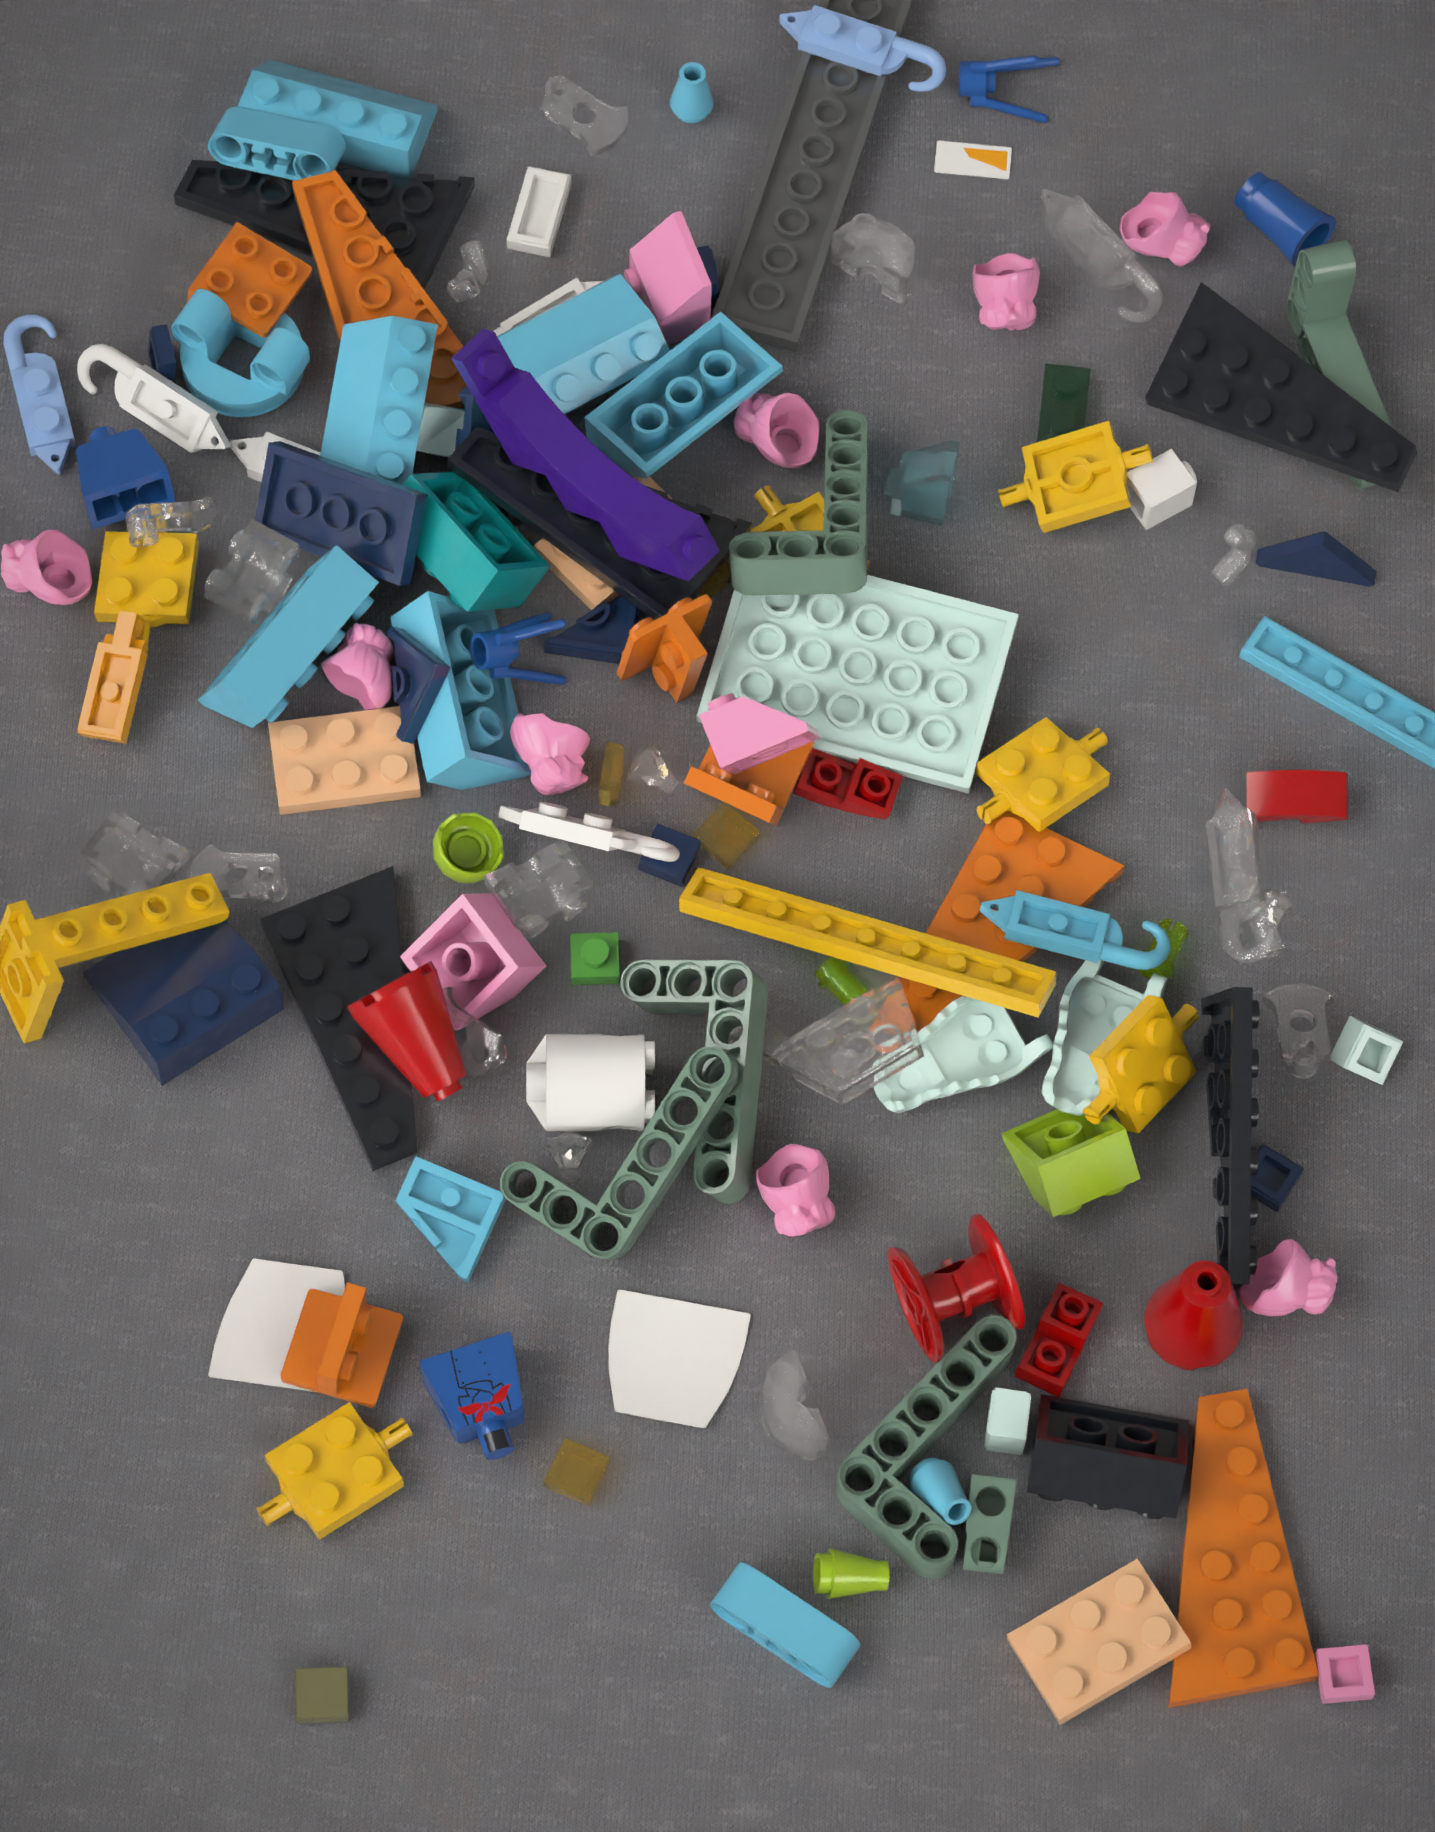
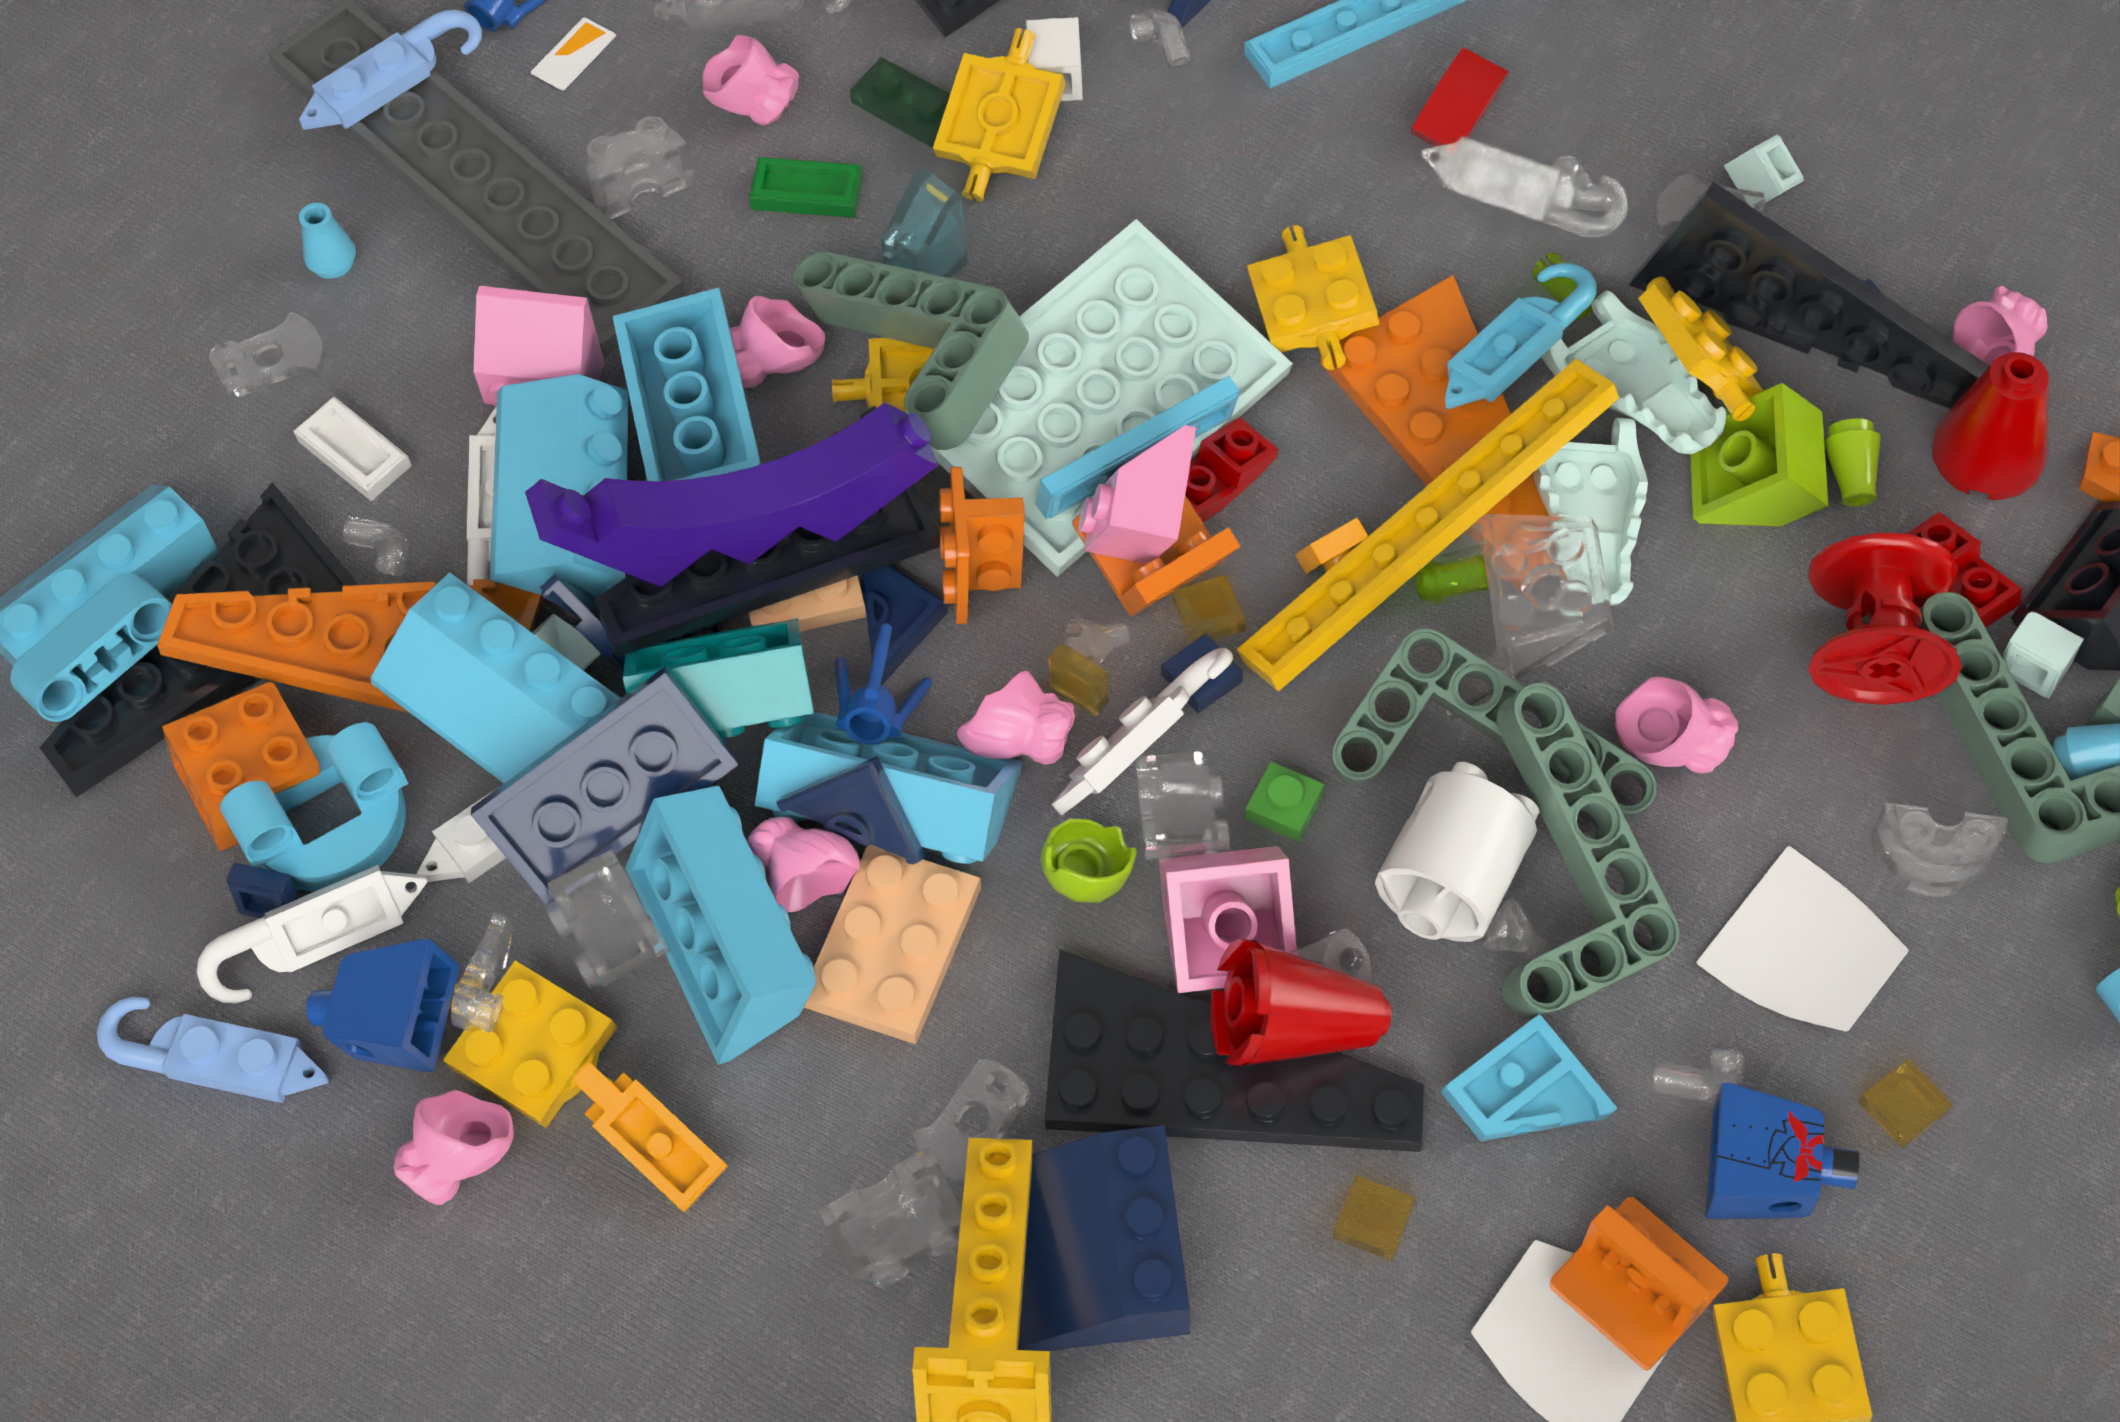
camera: 55 degrees left, 5 degrees down
(303, 1161) = (1374, 1218): none -> clear yellow tile
(527, 1337) = (1703, 1082): none -> clear arm
(816, 713) = (1081, 477): none -> medium azure tile
(819, 889) = (1331, 547): none -> light orange plate
(942, 381) = (806, 187): none -> green tile
(1116, 1223) = (1854, 458): none -> lime cone

